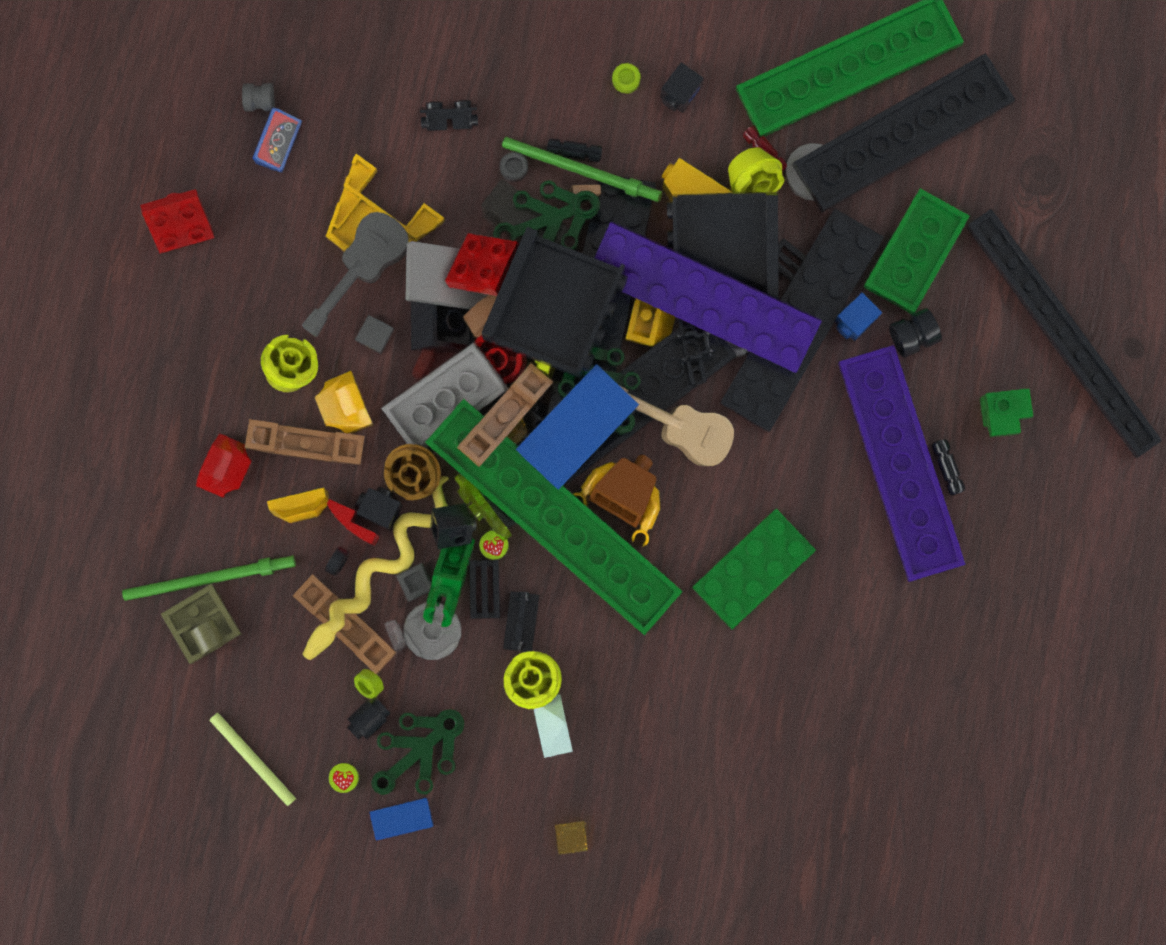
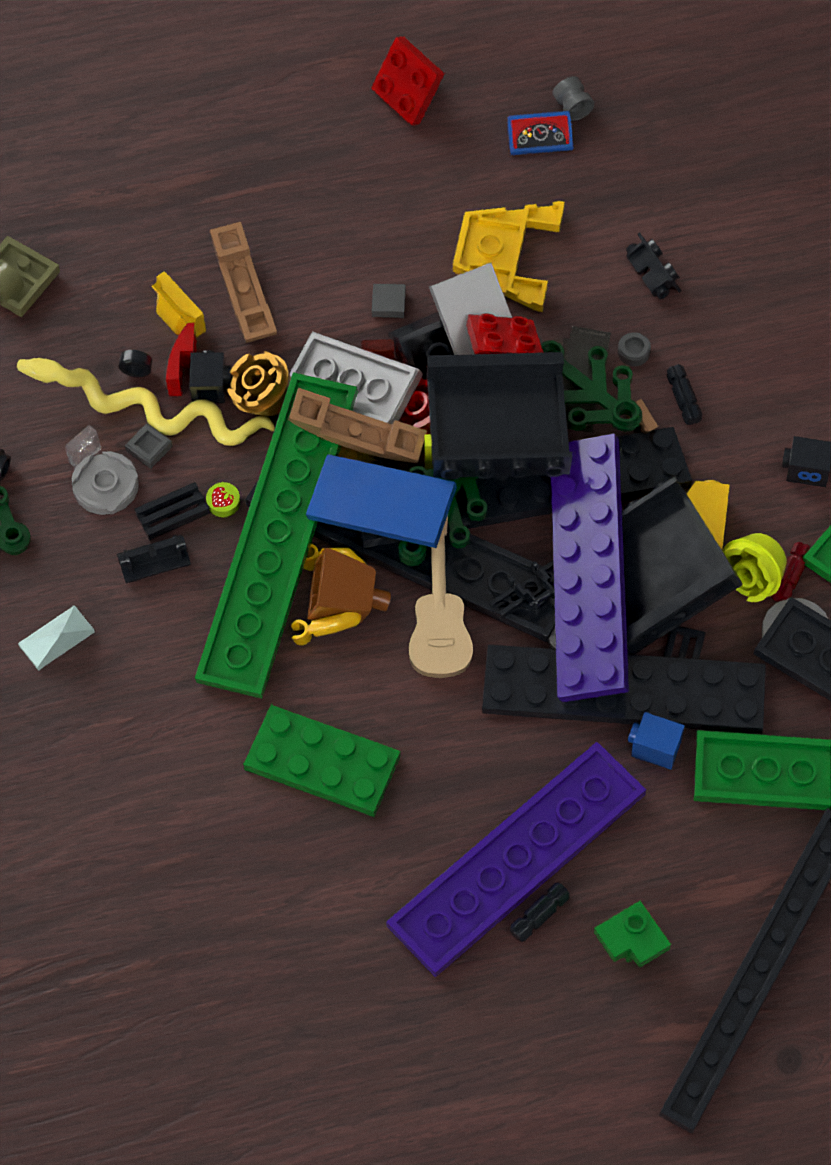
camera: 65 degrees right, 20 degrees down
(224, 466) = (183, 225): red slope -> none
(264, 567) = (97, 304): bright green bar -> none
(289, 363) = (315, 231): neon yellow cone -> none
(343, 404) = (300, 303): yellow slope -> none
(355, 634) = (72, 403): medium nougat slope -> none
(368, 683) = (20, 444): lime tile -> none
(376, 246) = (455, 250): dark grey piece -> none
(448, 582) = (164, 465): green plate -> none
(452, 526) = (221, 445): black brick -> none
(480, 507) = (251, 459): clear neon green wing -> none
(532, 680) = (92, 586): neon yellow cone -> none
(626, 78) = (790, 410): lime tile -> none
(632, 186) = (671, 451): bright green bar -> none
(648, 324) = (532, 537): yellow slope -> none
(918, 331) = (666, 801): black wheel -> none

